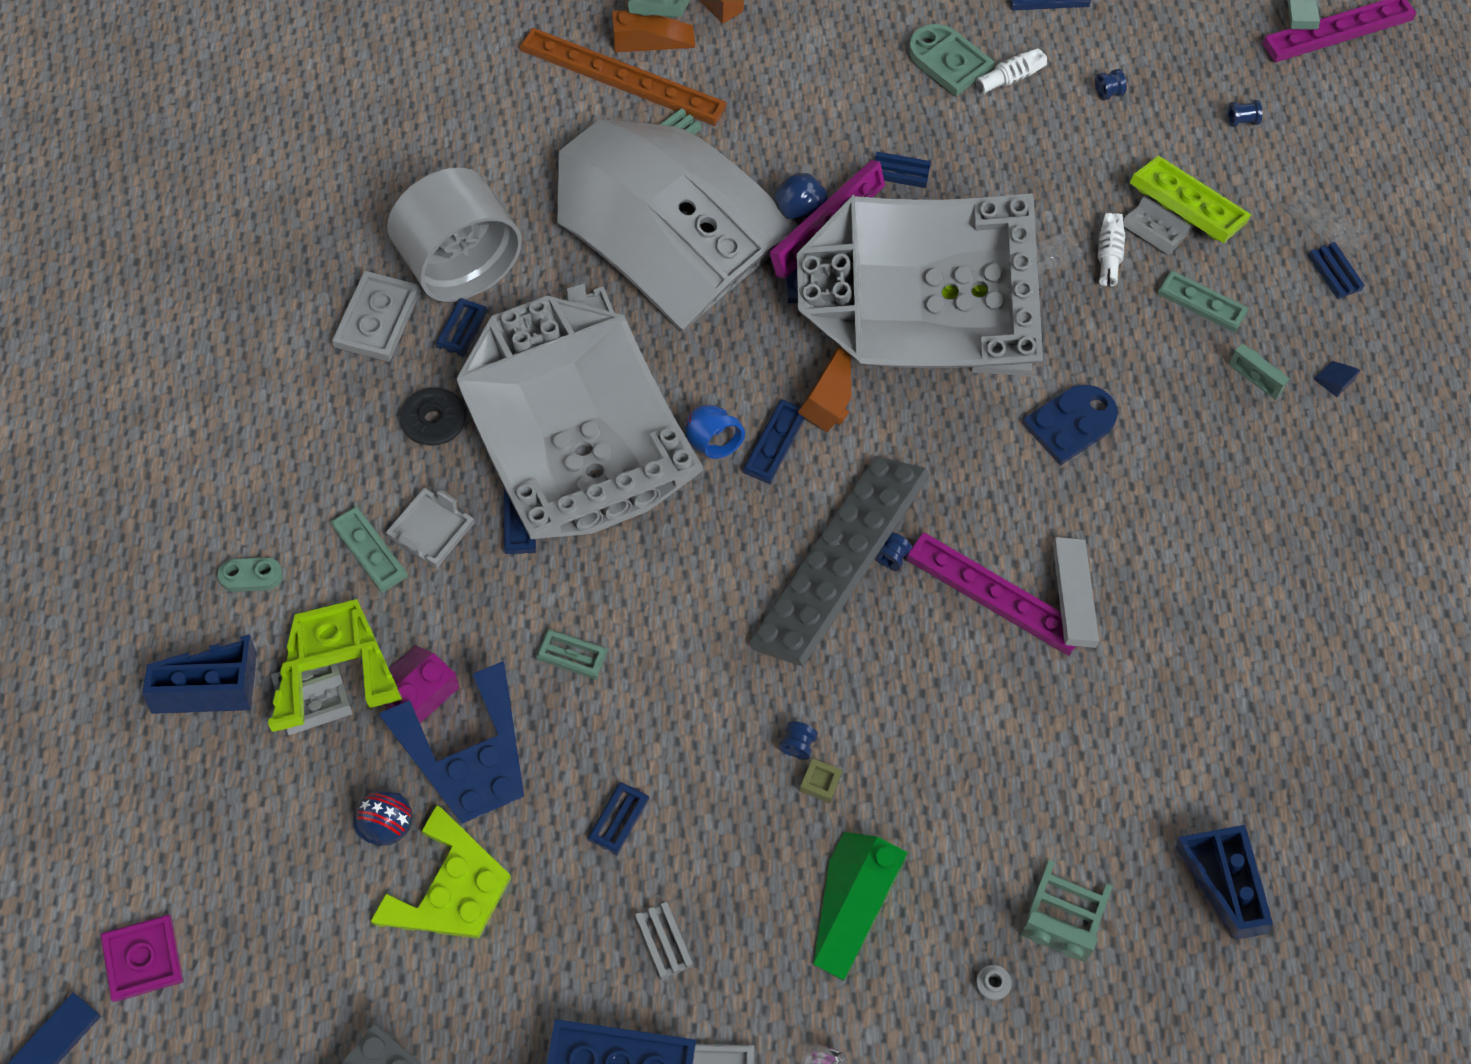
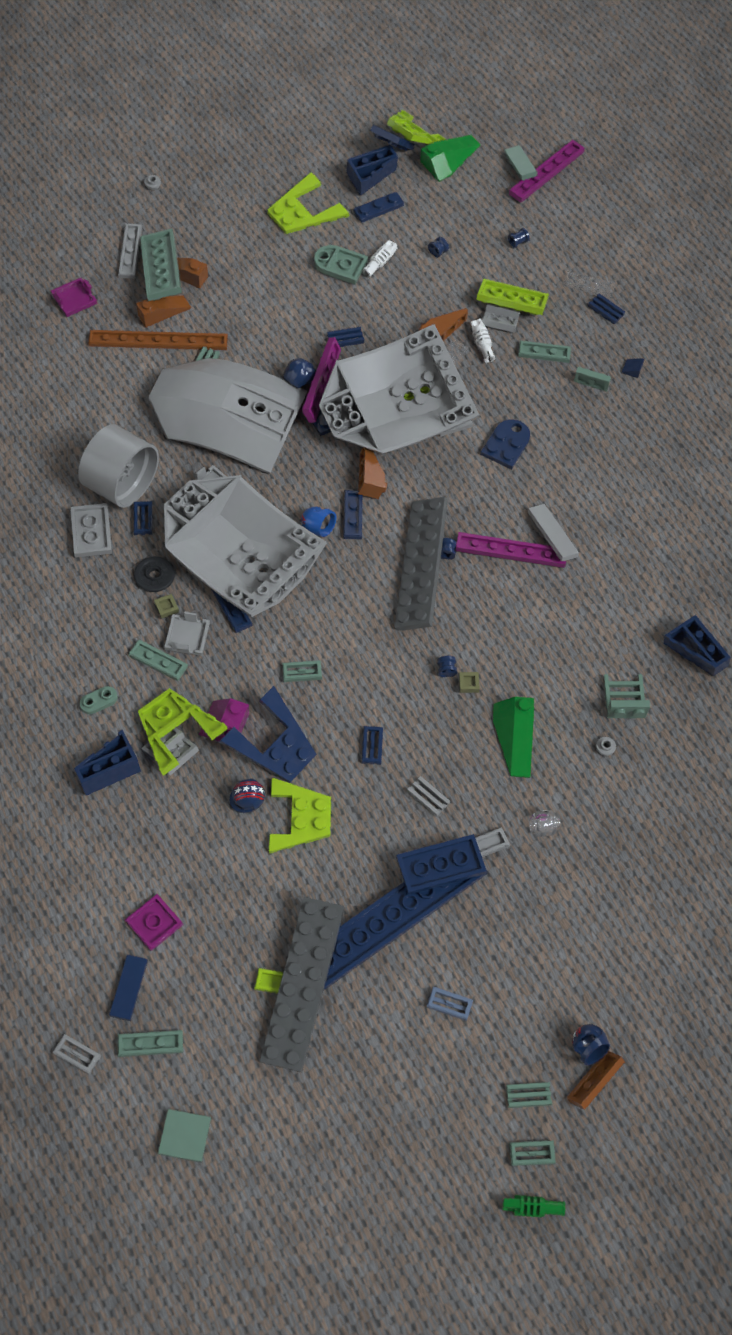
camera: 25 degrees left, 0 degrees up
(423, 471) = (166, 606): none -> olive plate
(1062, 204) = (447, 323): none -> dark orange slope

